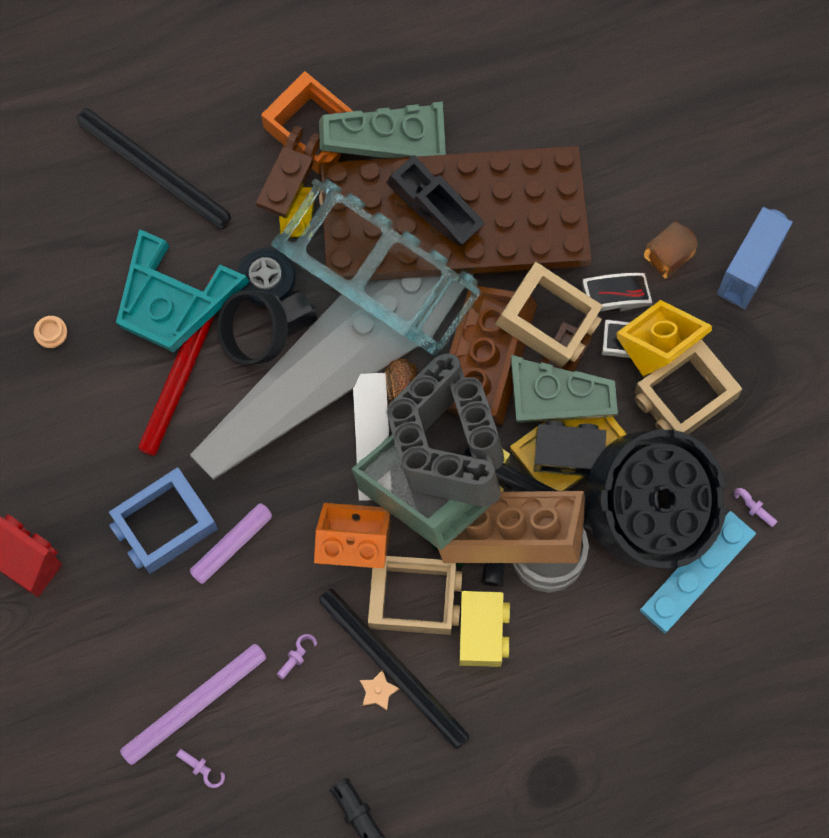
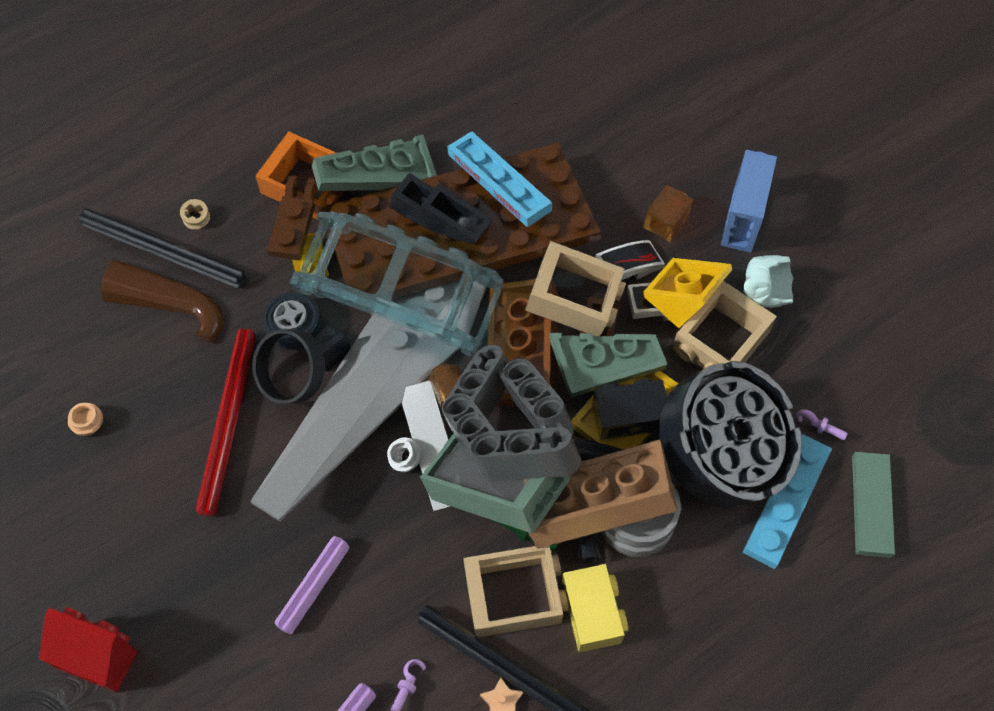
camera: 15 degrees left, 10 degrees down
(128, 207) = (142, 288): none -> reddish brown animal
(163, 307) = (196, 369): teal wing -> none
(179, 544) = (254, 602): medium blue window -> none
(198, 130) = (199, 207): none -> tan bush
(335, 437) = (395, 453): none -> white plate
(368, 536) = (440, 549): orange window -> none
(504, 178) = (500, 179): none -> medium azure plate
(748, 350) = (769, 281): none -> light aqua hair
(778, 596) = (873, 505): none -> sand green tile

